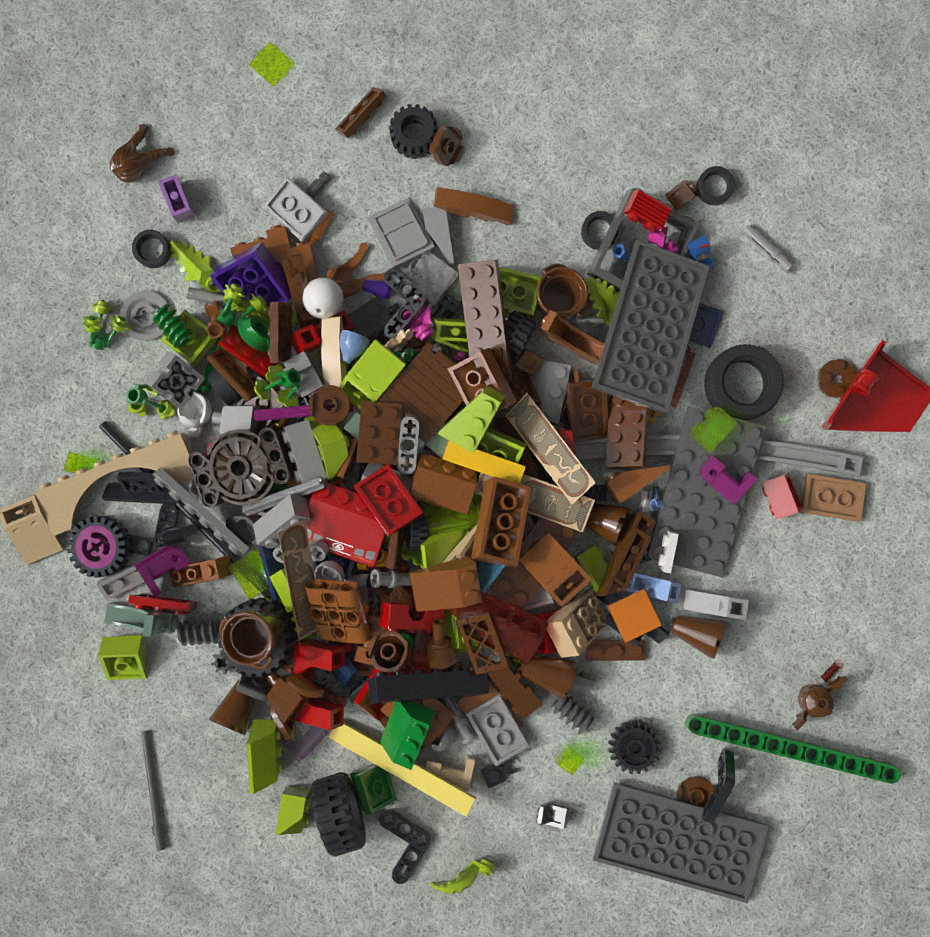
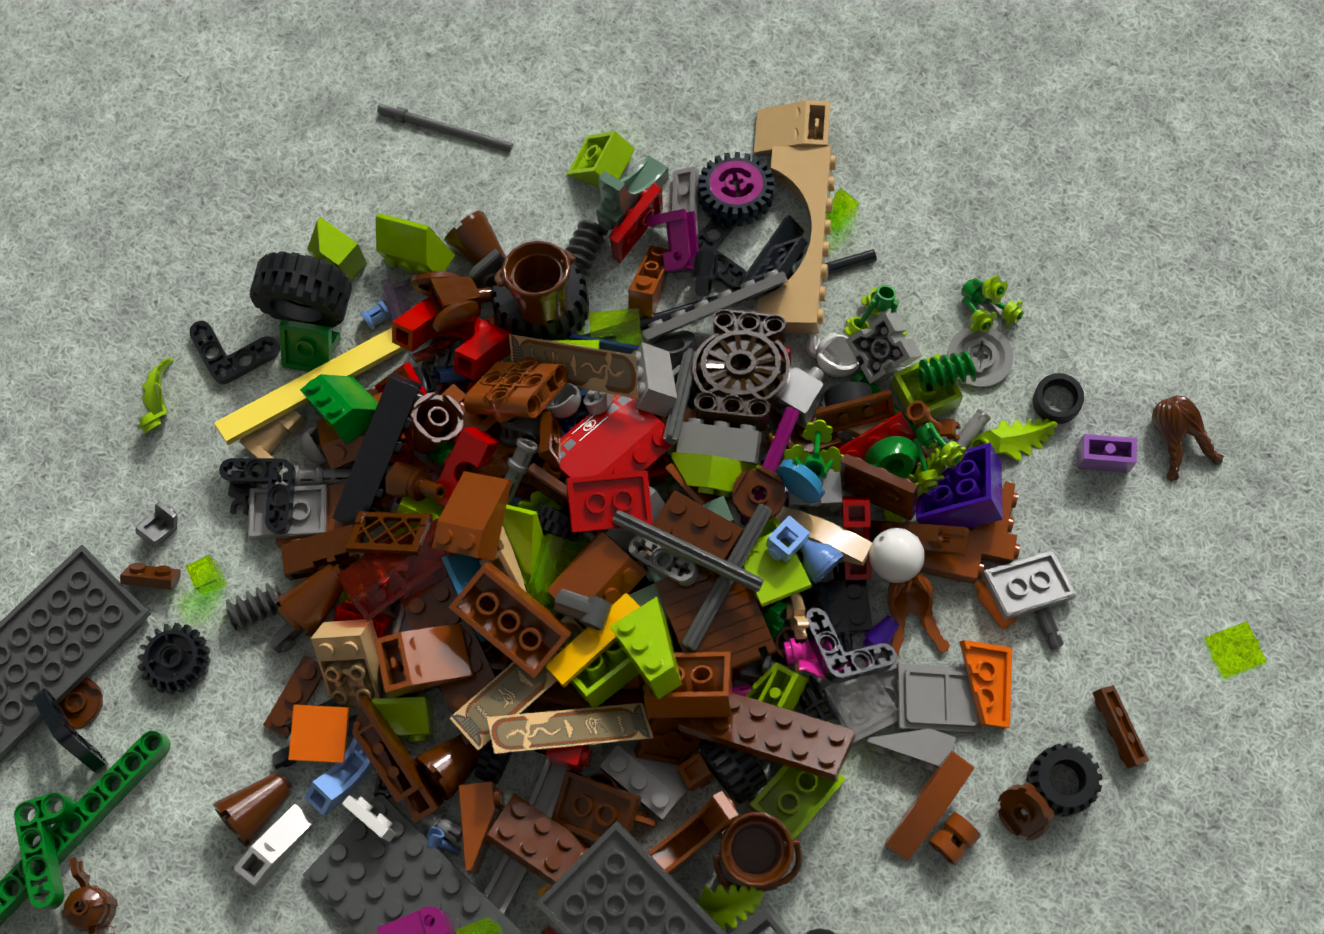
camera: 120 degrees right, 15 degrees down
(306, 380) = (800, 481): none -> dark azure tile
(321, 747) = (376, 315): none -> medium blue bush
(347, 366) = (790, 532): none -> light blue brick
(368, 563) = (550, 435): none -> reddish brown plate
(373, 205) = (990, 681): none -> orange wing
(396, 428) = (688, 551): none -> dark grey axle
(398, 395) = (722, 584): none -> dark grey axle
(468, 474) = (589, 610): none -> dark grey piece
(481, 755) = (269, 477): none -> black beam
(485, 182) = (961, 831): none -> dark orange wheel
(590, 798) = (150, 576): none -> reddish brown plate
(801, 747) = (46, 850): none -> green beam

